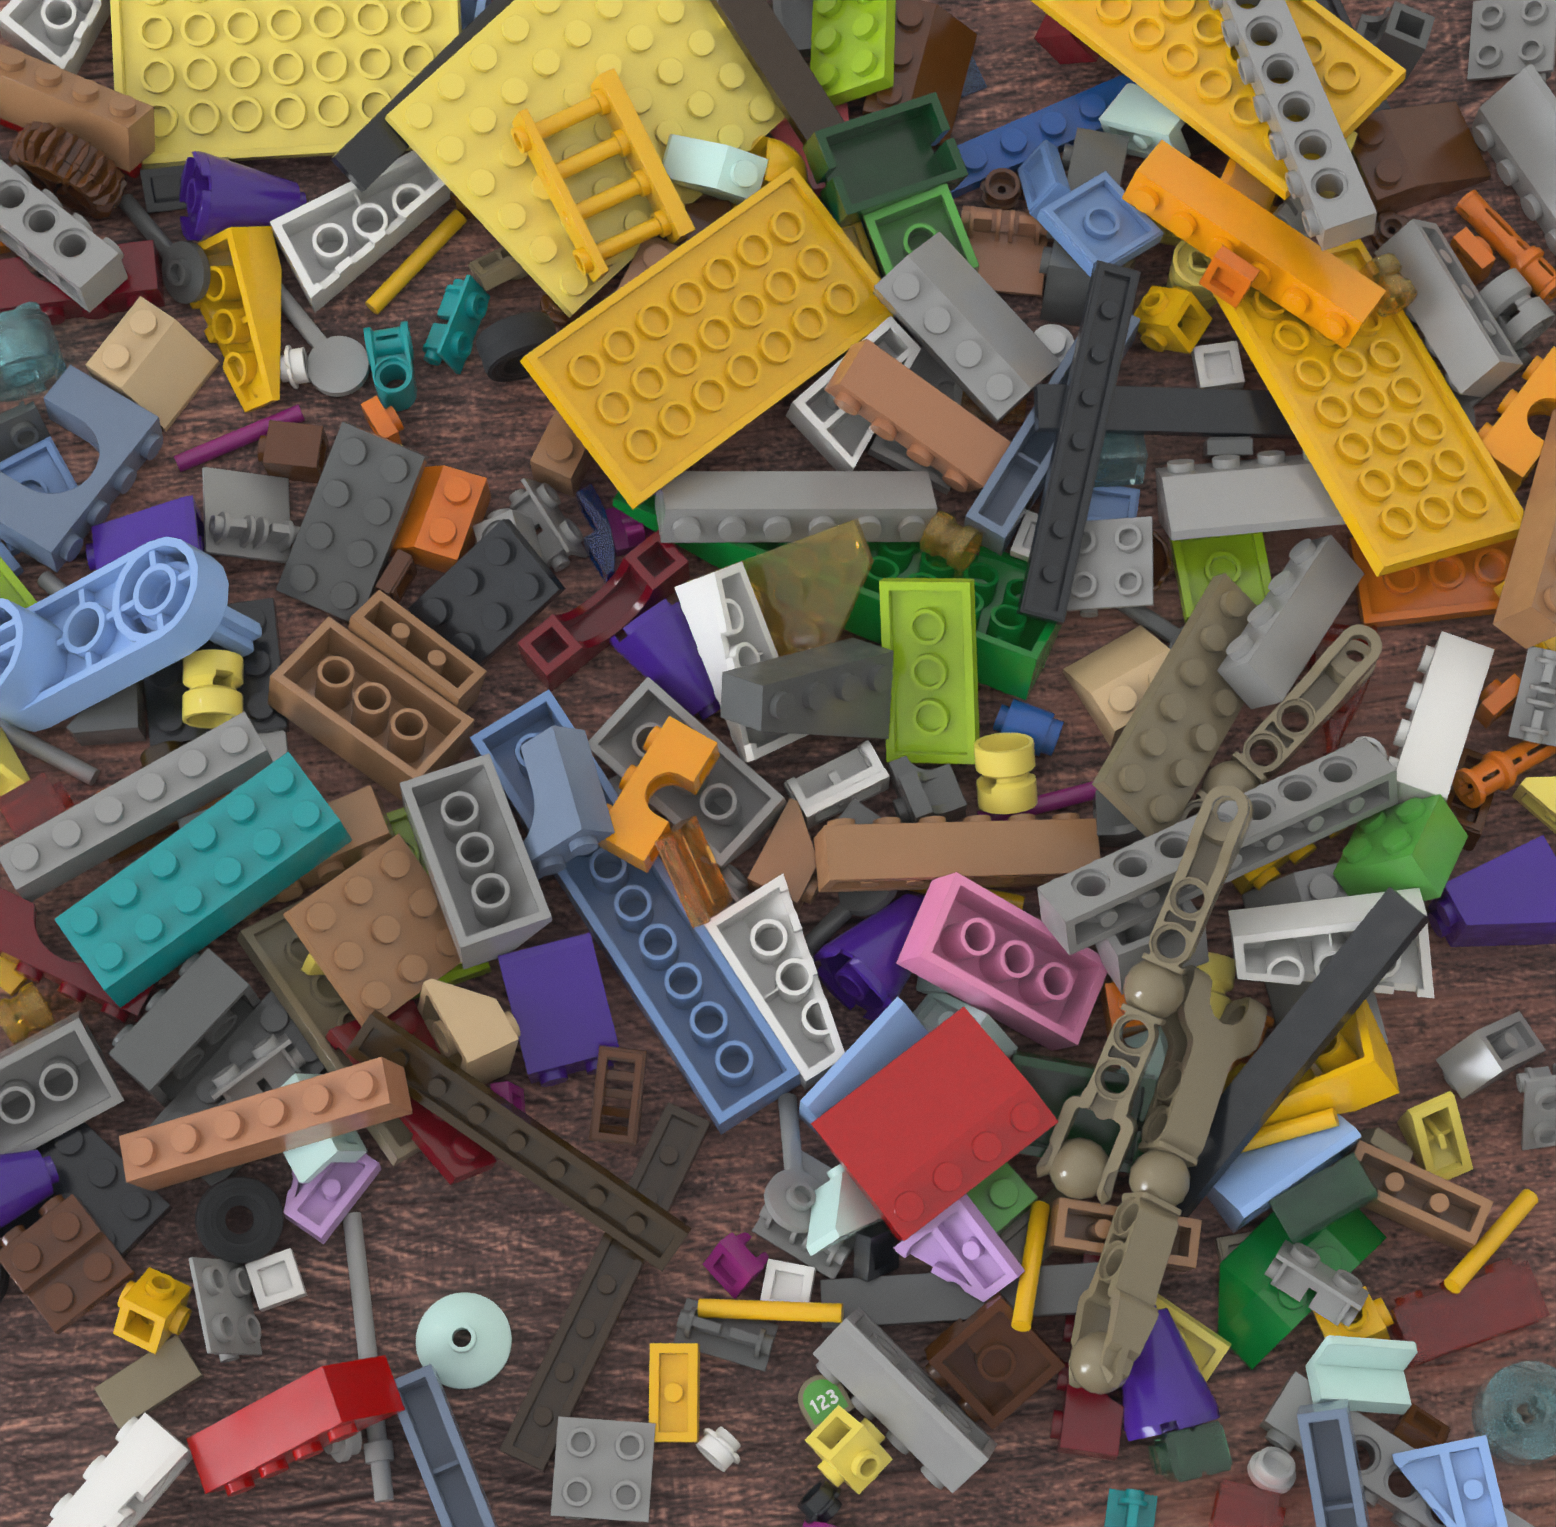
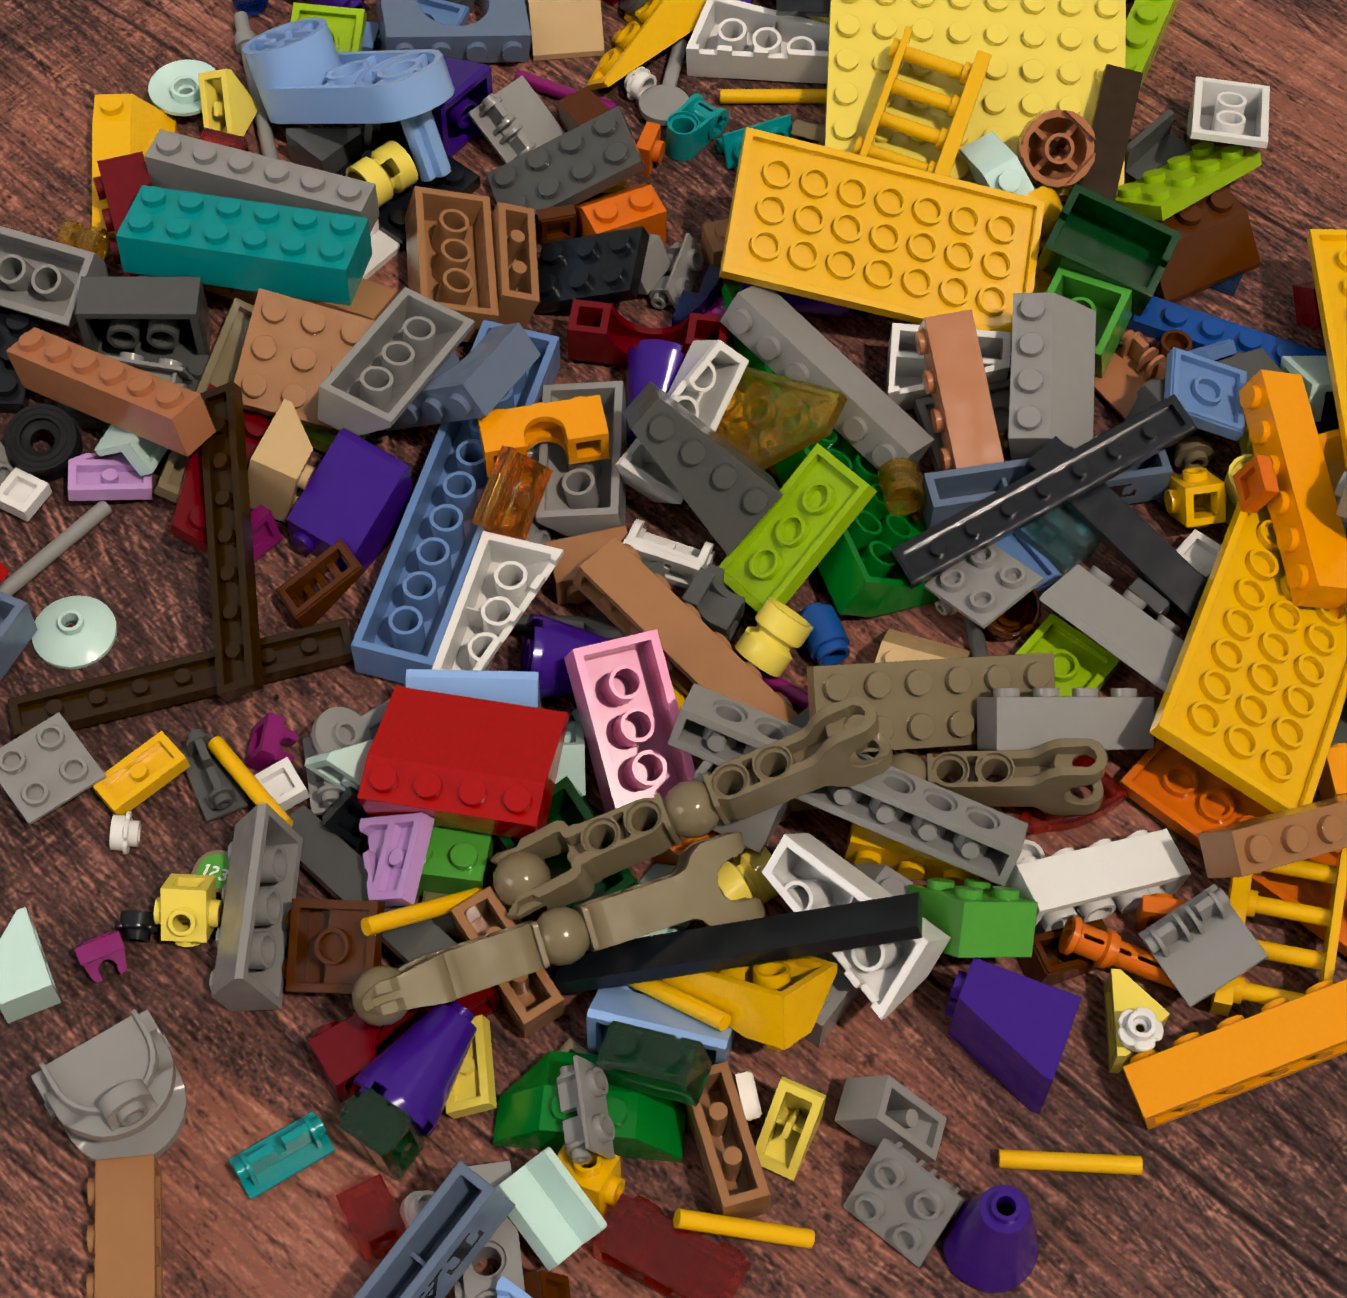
camera: 45 degrees right, 15 degrees down
(748, 104) = (1056, 148): none -> nougat cylinder

